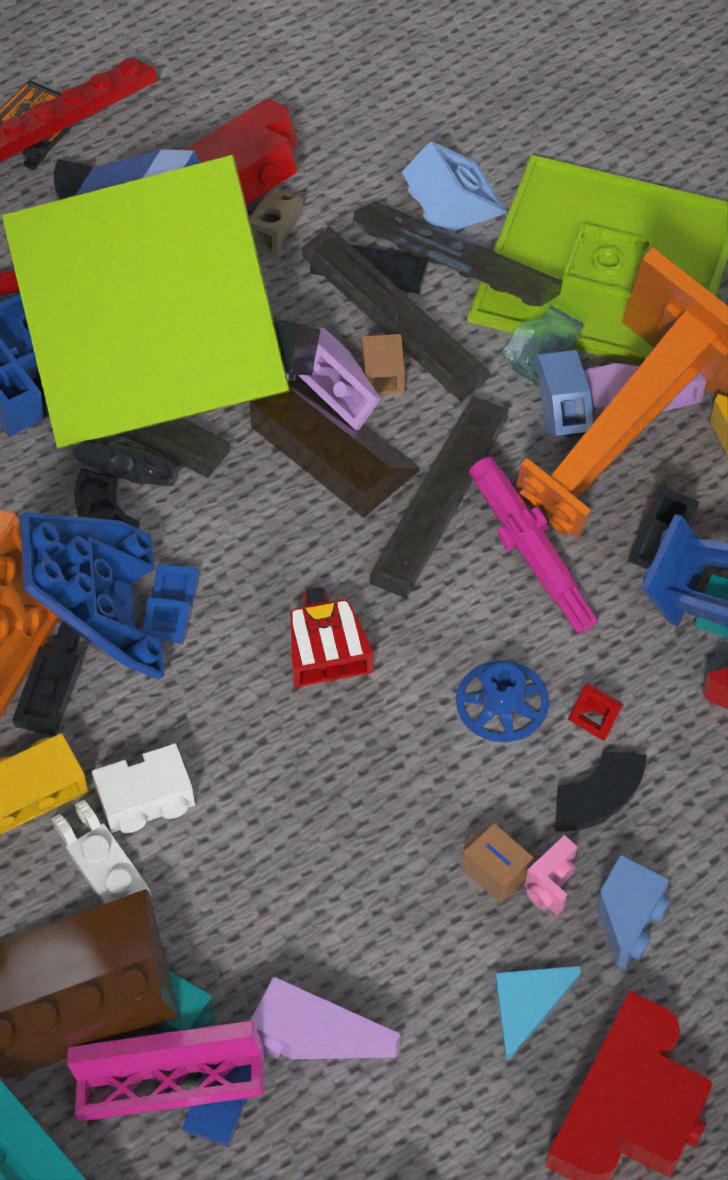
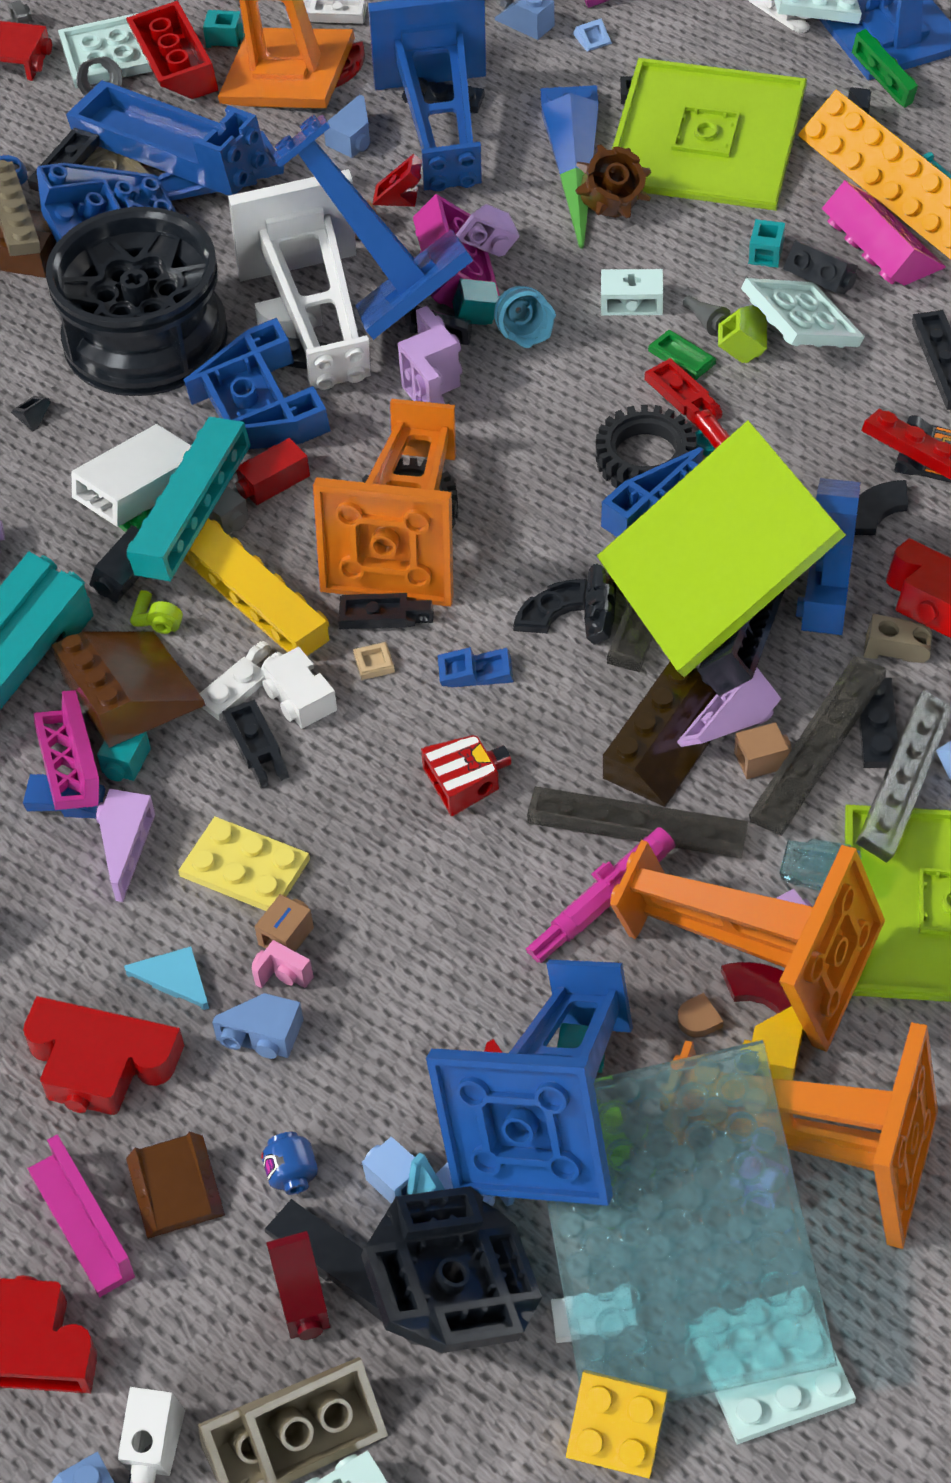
camera: 80 degrees right, 5 degrees down
(85, 578) = (444, 592): blue wedge -> none
(120, 707) = (373, 661): none -> tan tile
(206, 854) = (254, 740): none -> black hinge
(385, 899) = (243, 864): none -> light yellow plate
(502, 695) = (446, 904): blue wheel -> none
(564, 393) = (768, 874): medium blue slope -> none
(596, 700) = (448, 974): red slope -> none
(601, 794) = (371, 994): black tile -> none
(664, 507) = (649, 987): black slope -> none
(673, 431) = (756, 983): none -> dark red tile
(701, 491) = (698, 1017): none -> medium nougat tile

